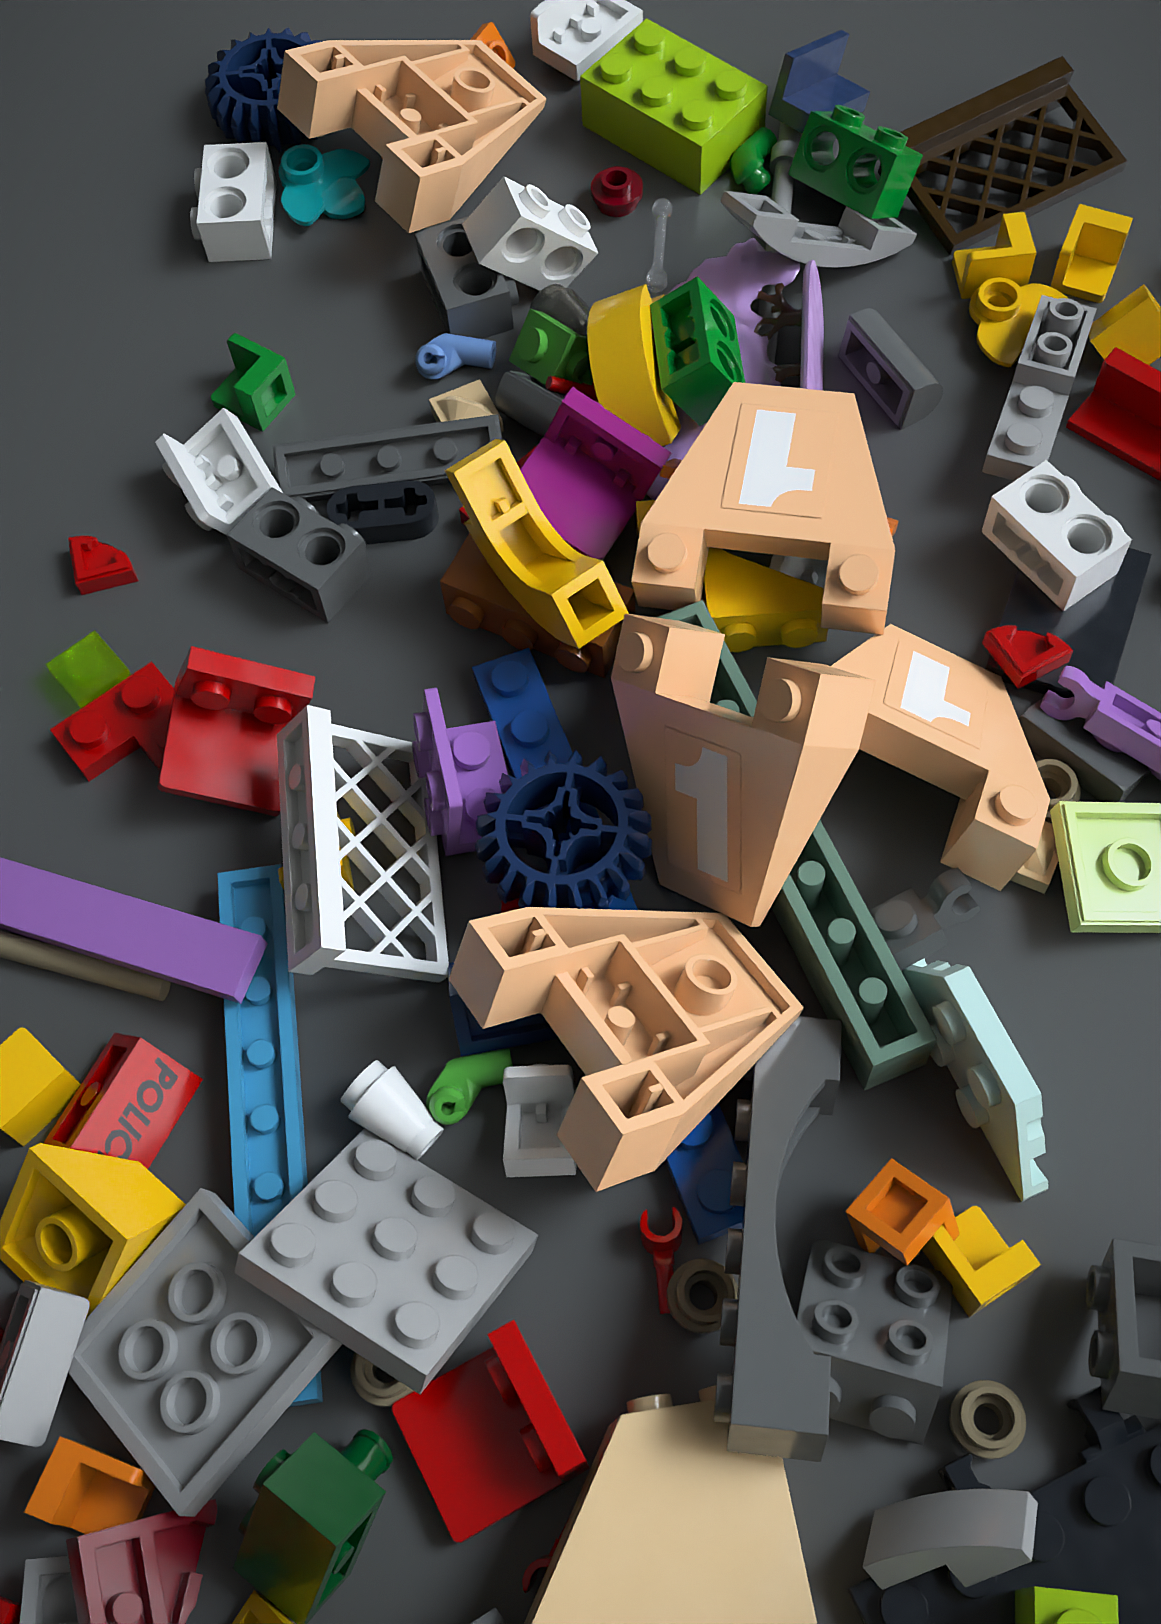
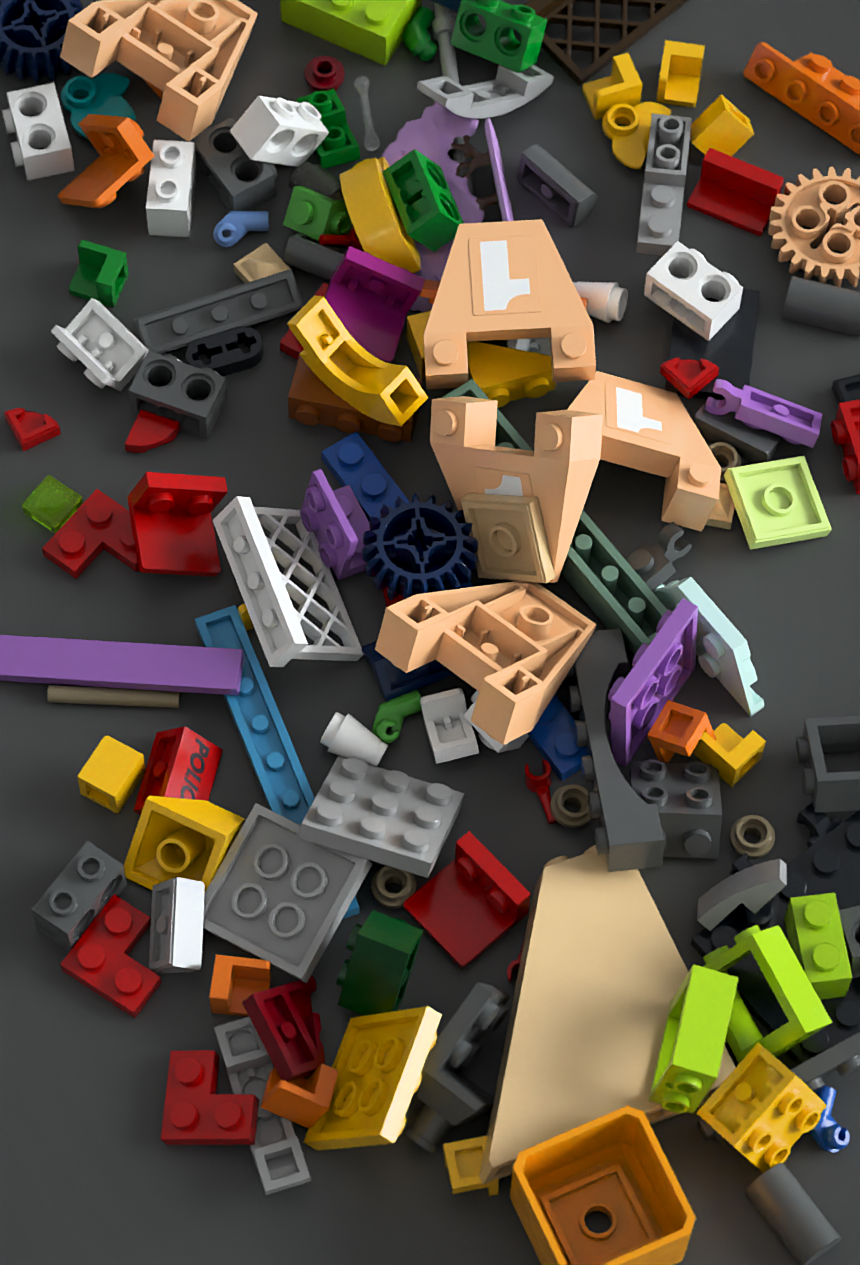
camera: 20 degrees left, 0 degrees up
(251, 599) = (150, 432): none -> red tile
(321, 220) = (120, 160): none -> orange bracket
(375, 292) = (171, 188): none -> white brick
(612, 267) = (340, 143): none -> green slope
(698, 844) = (509, 537): none -> tan tile
(875, 1123) = (656, 676): none -> medium lavender plate
(922, 528) = (604, 299): none -> white cone

